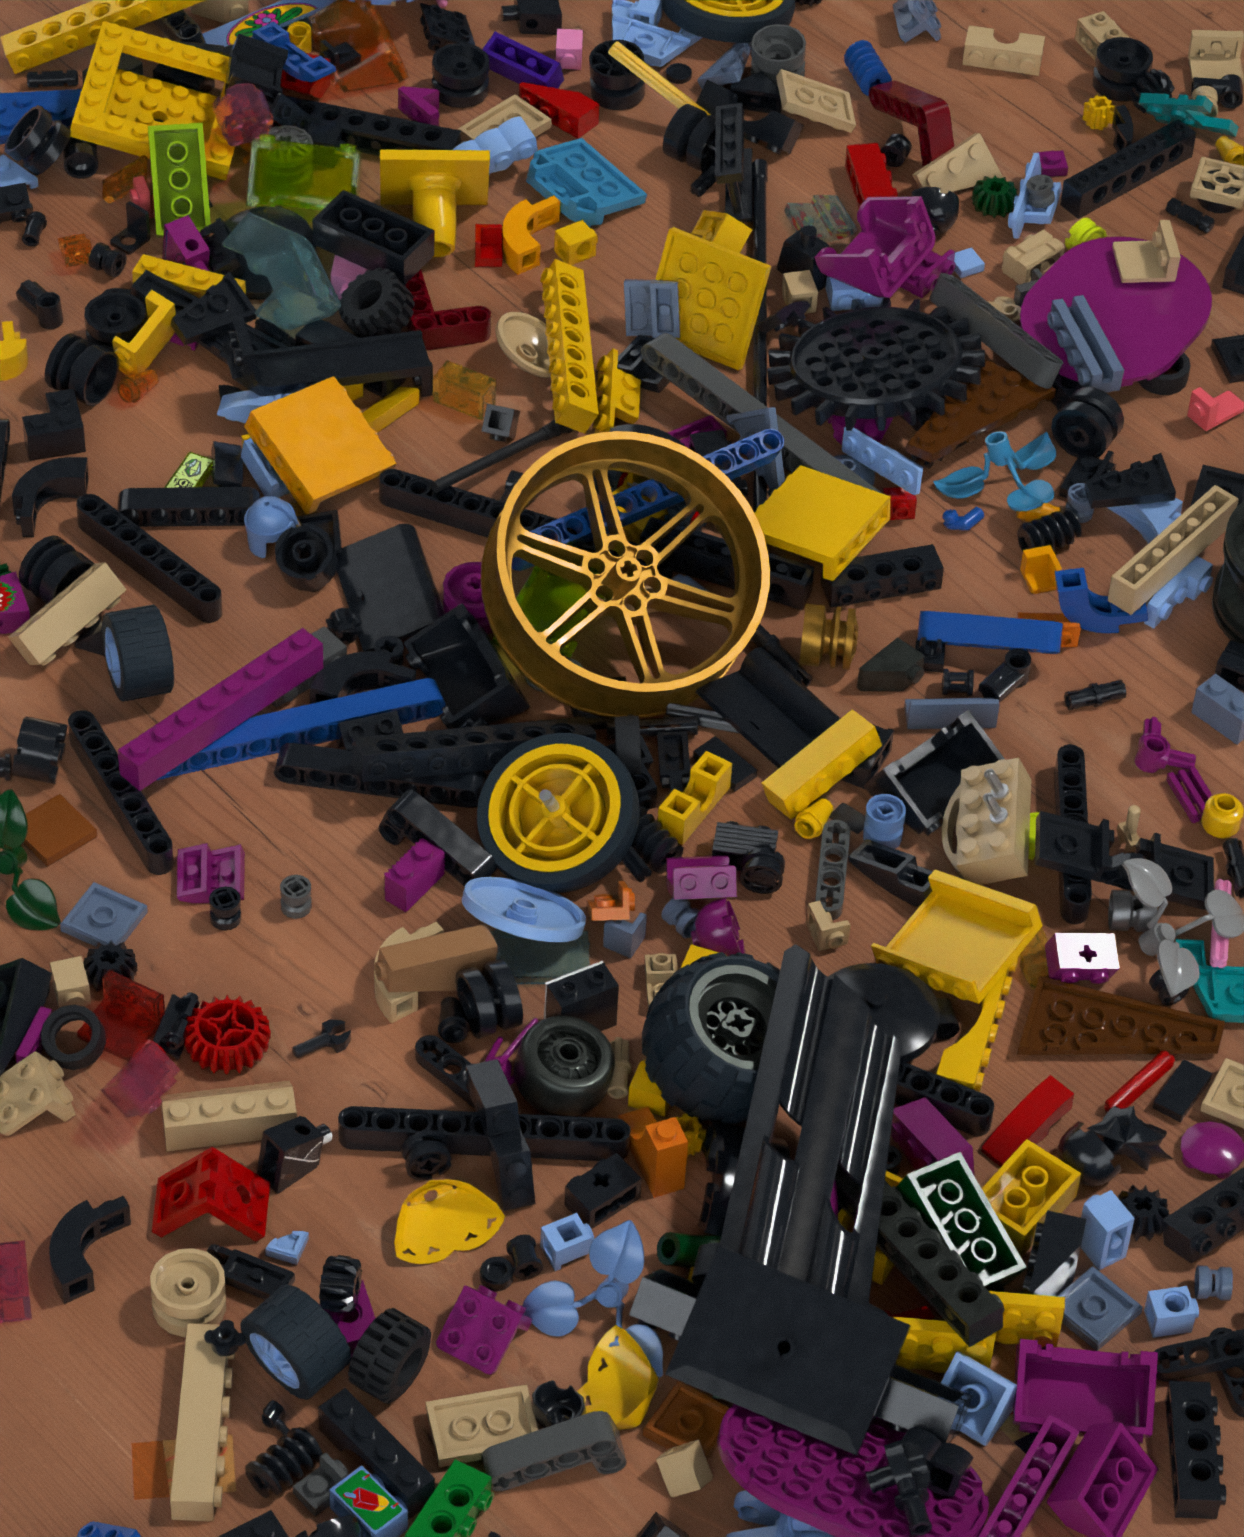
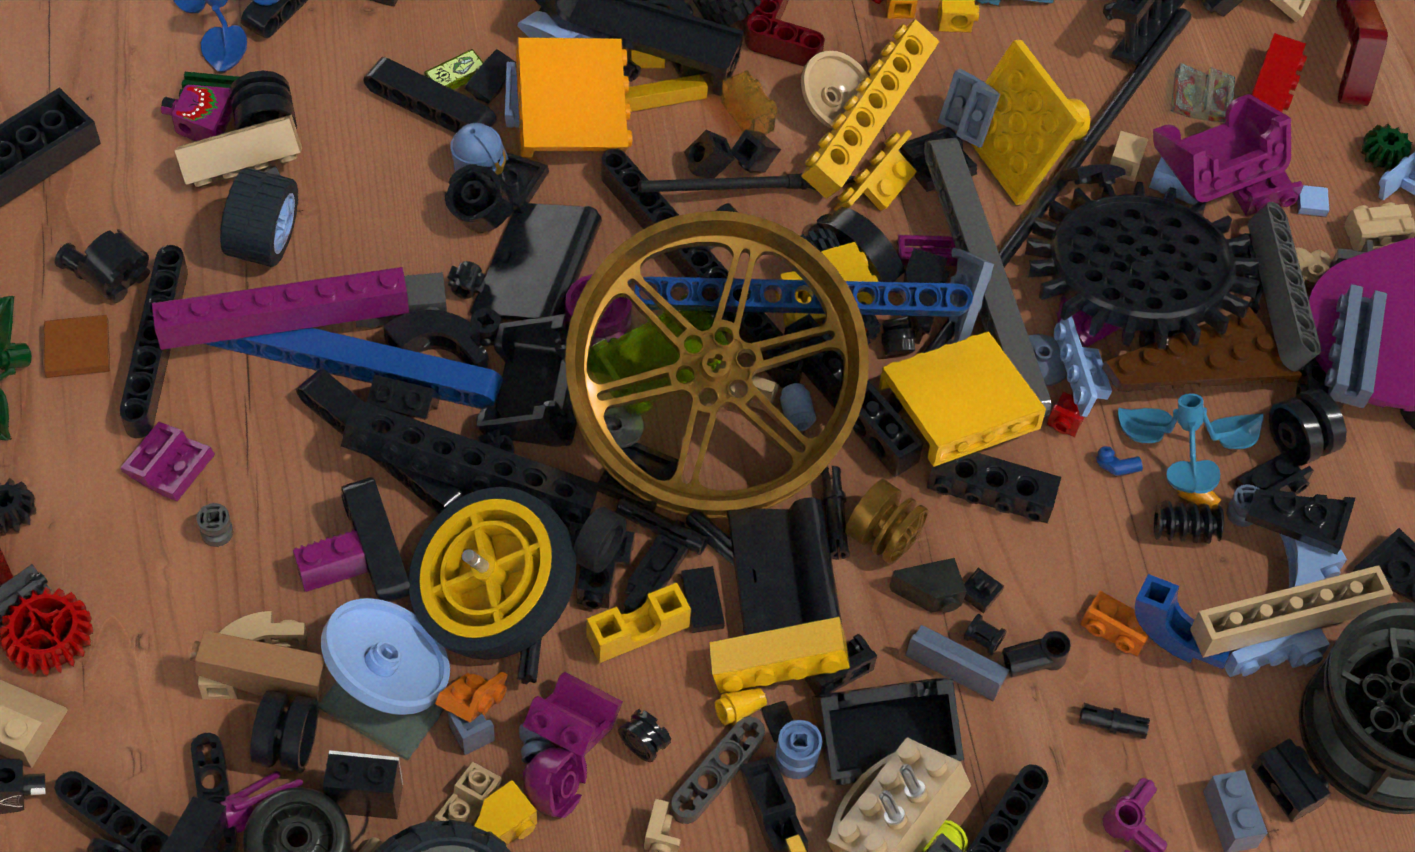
camera: 30 degrees right, 10 degrees up
(46, 482) = (326, 20): black arch -> none
(103, 916) = (48, 454): sand blue tile -> none
(149, 558) = (358, 132): black beam -> none
(225, 908) = (147, 502): black wheel -> none
(326, 1038) = (129, 683): black bar -> none
(452, 1021) = (240, 734): black cone -> none
(475, 438) = (708, 155): none -> black brick
(654, 843) = (566, 644): black piece -> none
(722, 230) = (1087, 72): yellow panel -> none
(735, 839) = (645, 690): black brick -> none
(800, 252) = (1149, 115): black torso -> none
(896, 149) = (1323, 58): black wheel -> none
(941, 208) = (1312, 136): black cylinder -> none
(959, 166) = (1368, 104): tan wing -> none
(991, 632) = (1050, 600): blue beam -> none
(1039, 569) = (1155, 555): light orange panel -> none

